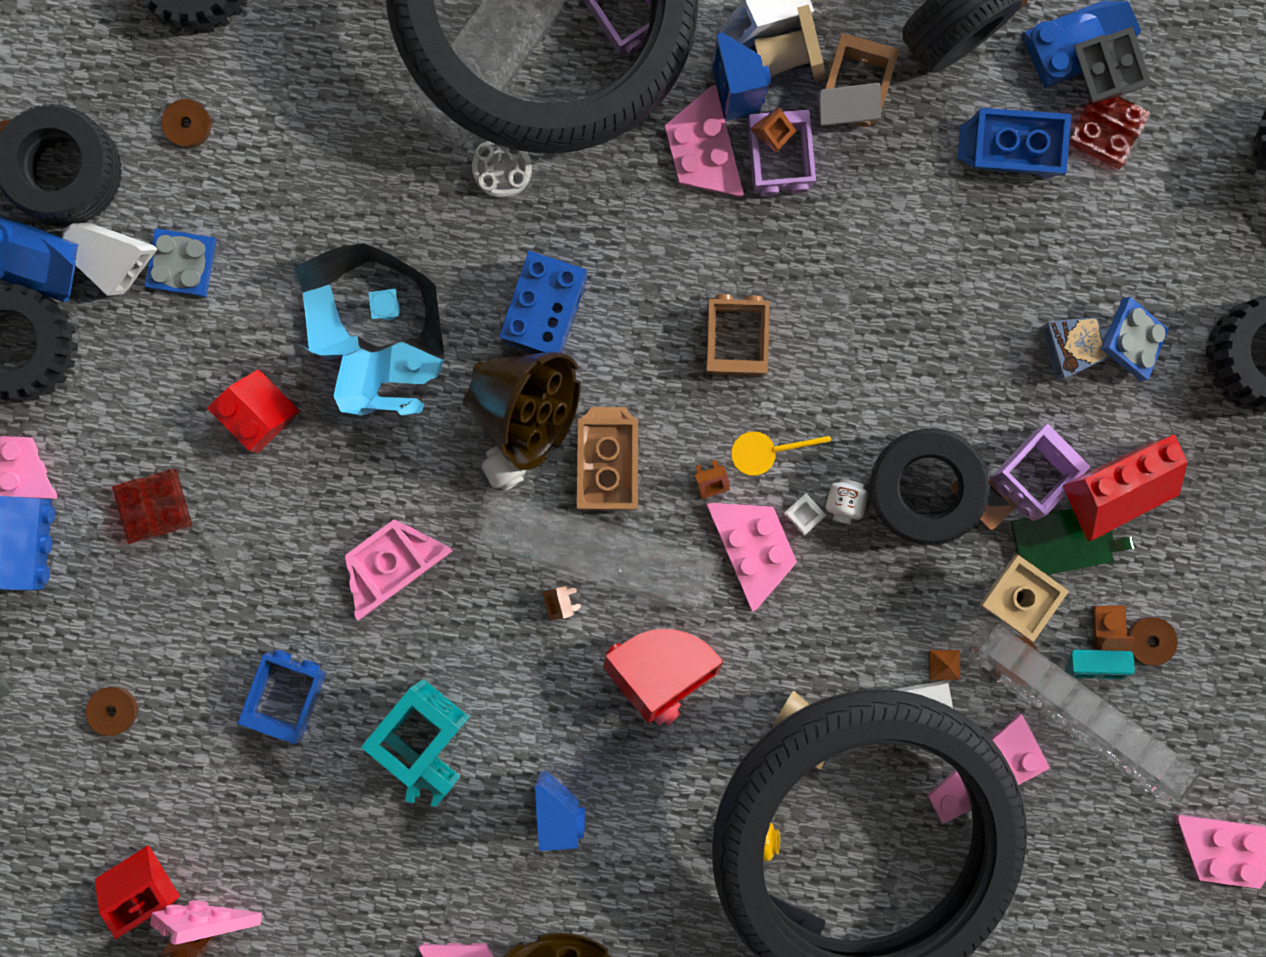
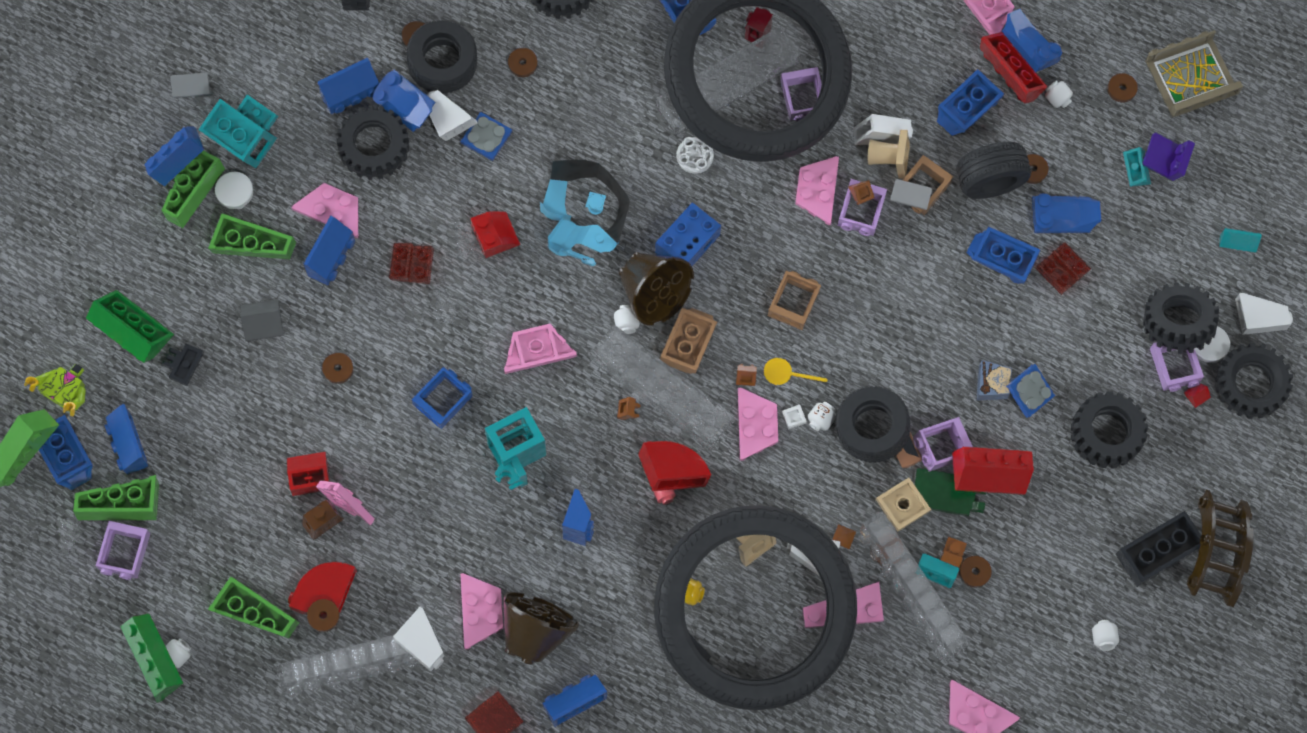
camera: 20 degrees right, 15 degrees down
(739, 78) = (852, 156): blue slope -> none
(1112, 65) = (1075, 232): dark grey slope -> none

